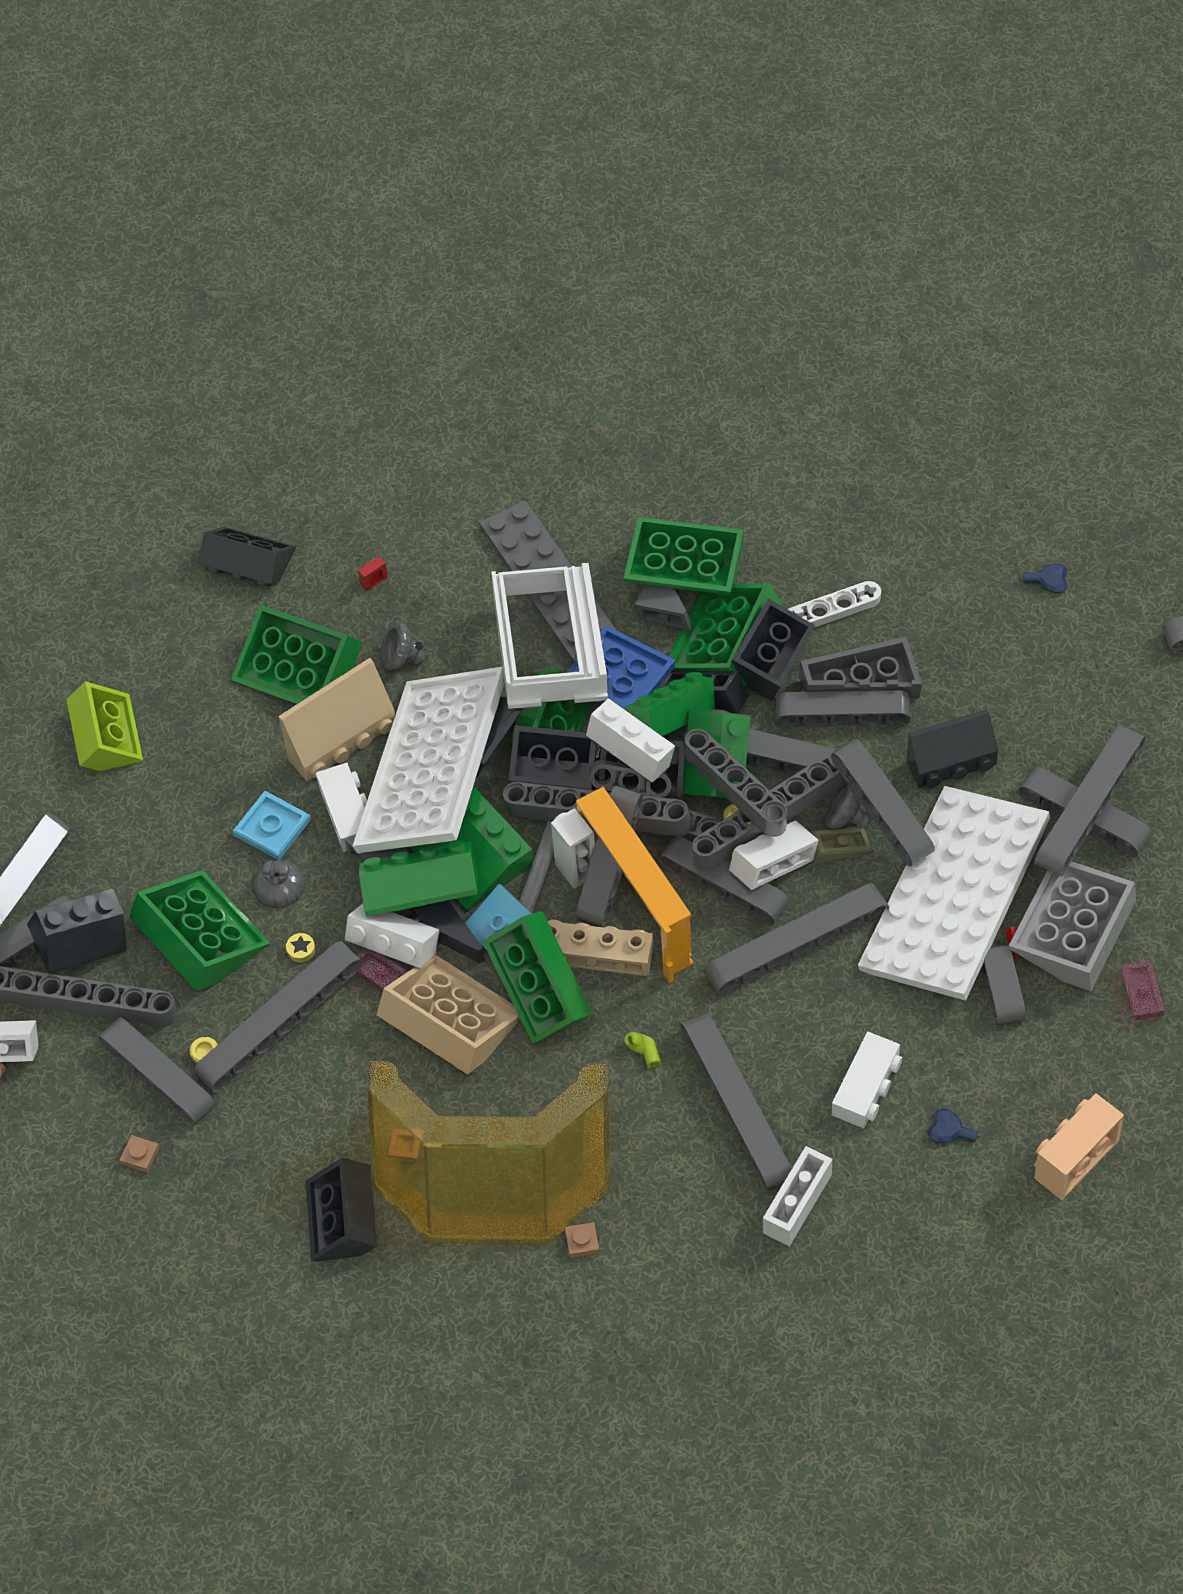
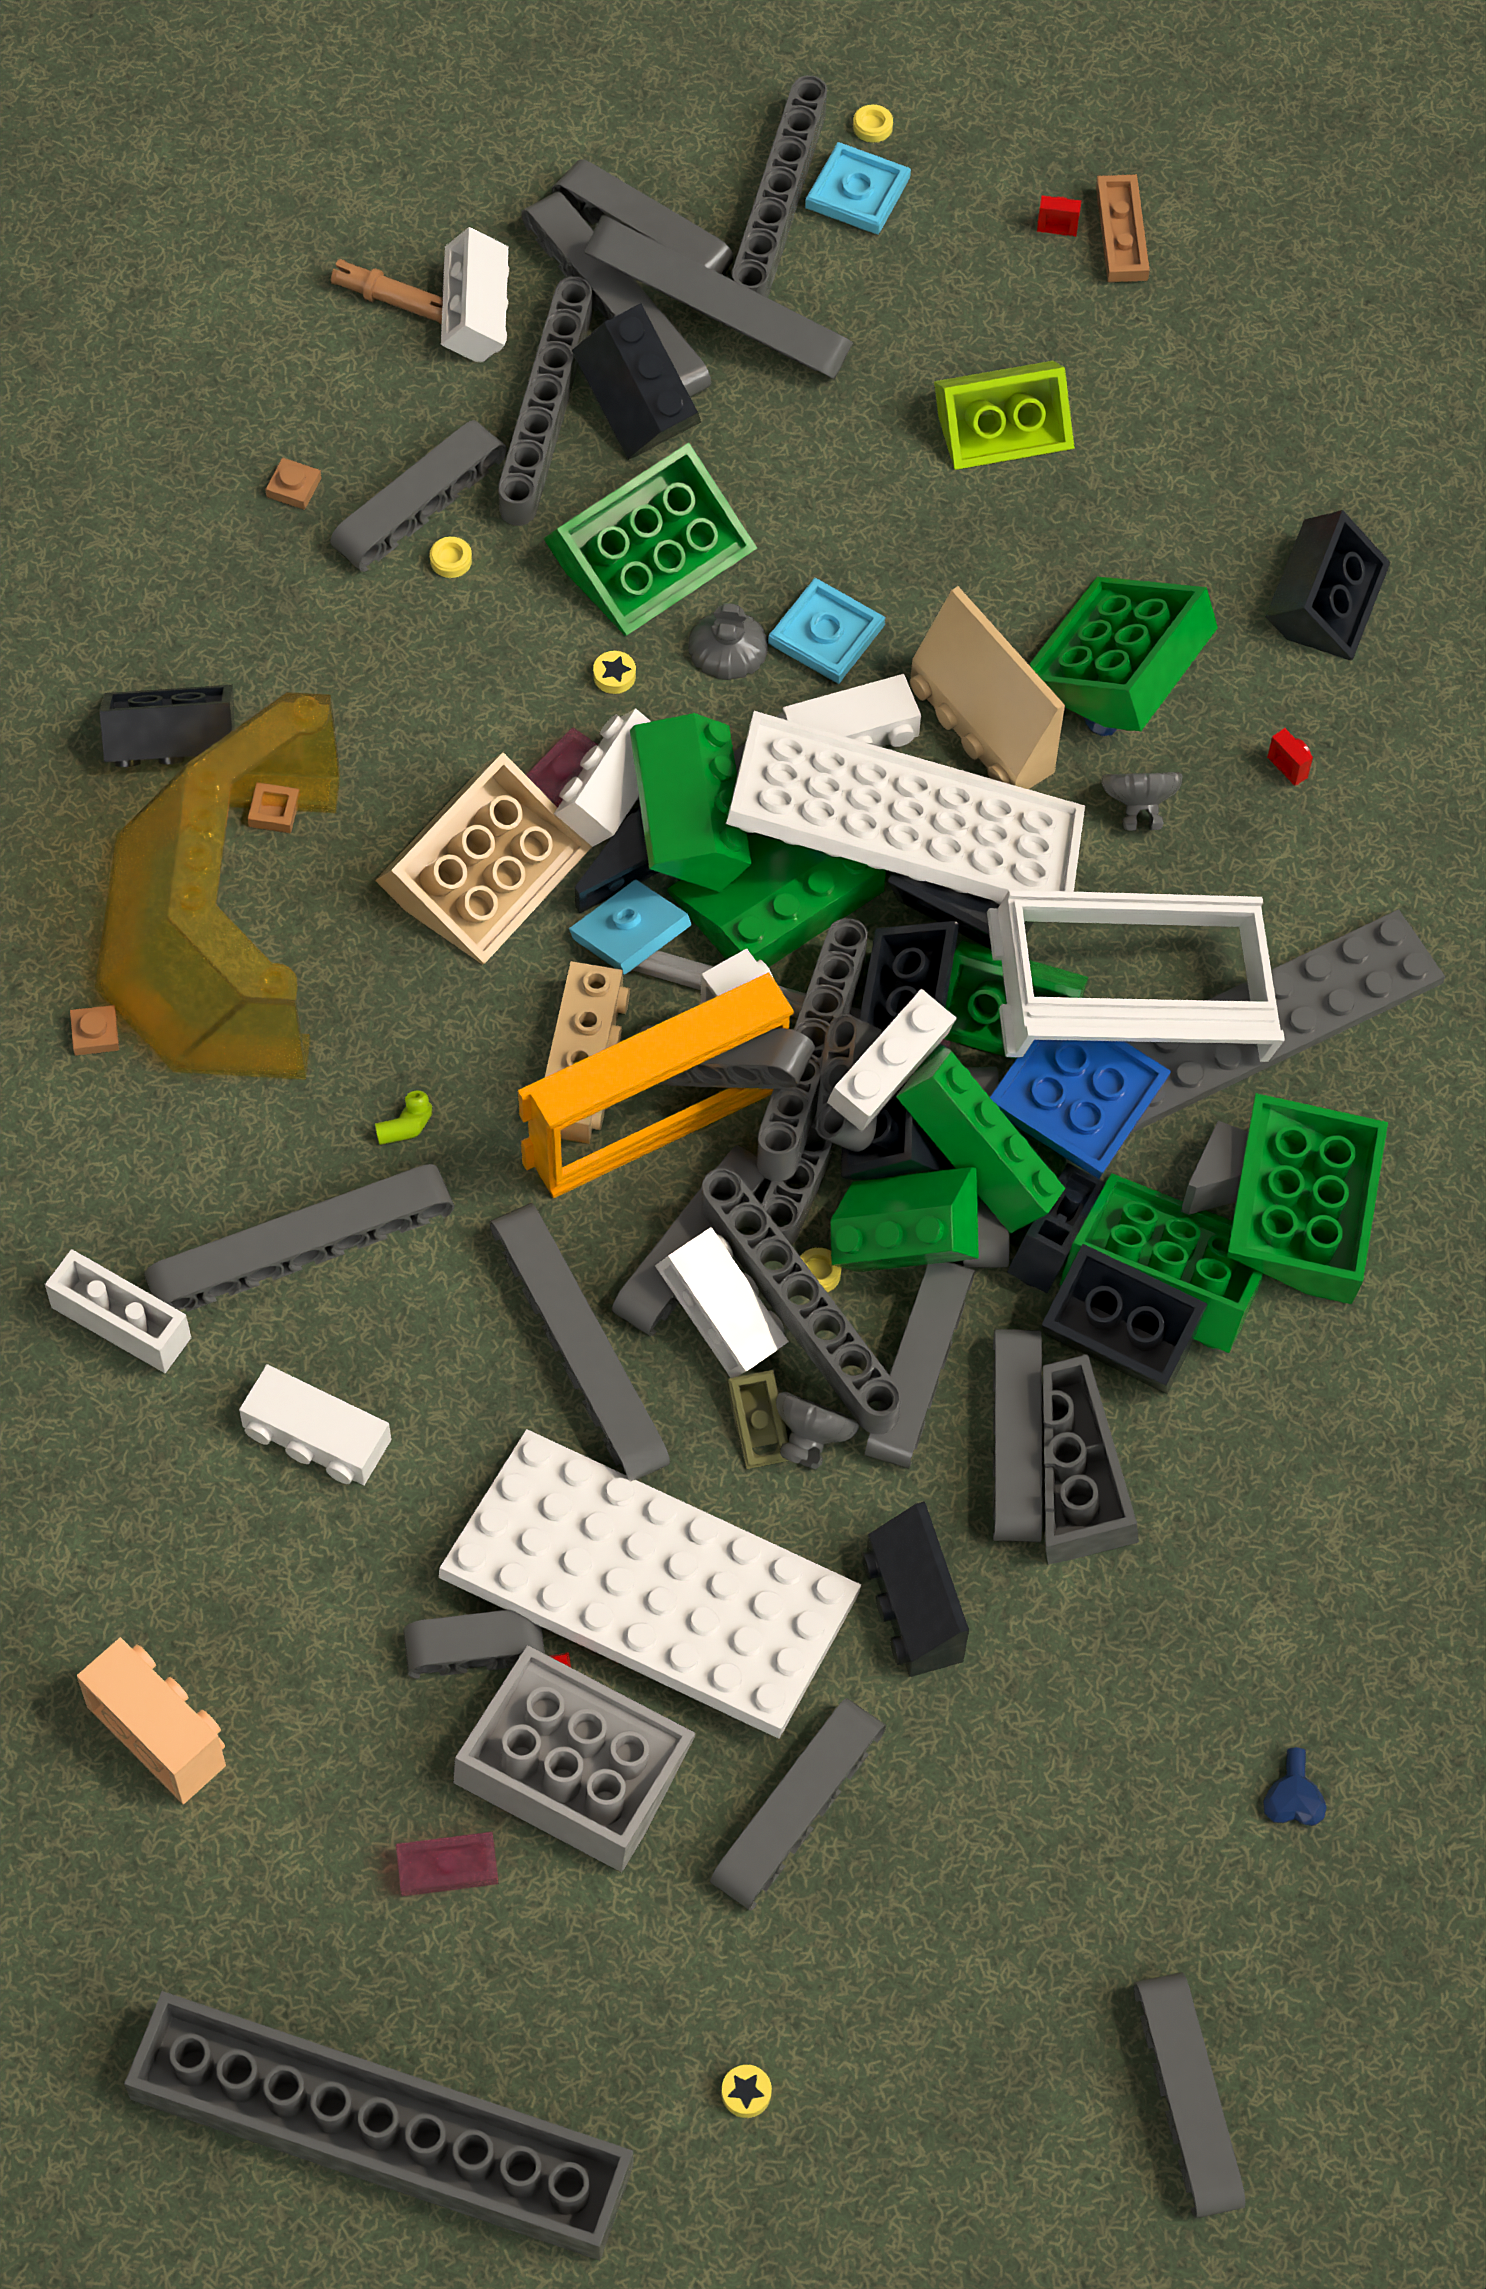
camera: 85 degrees right, 5 degrees up
(277, 1016) = (489, 638): dark grey beam -> none
(537, 977) = (518, 965): green slope -> none
(739, 794) = (817, 1243): dark grey beam -> none
(834, 612) = (1235, 1432): white beam -> none
(883, 802) = (794, 1456): dark grey beam -> none
(949, 1127) = (226, 1547): dark blue rock -> none
(1090, 800) = (797, 1795): dark grey beam -> none

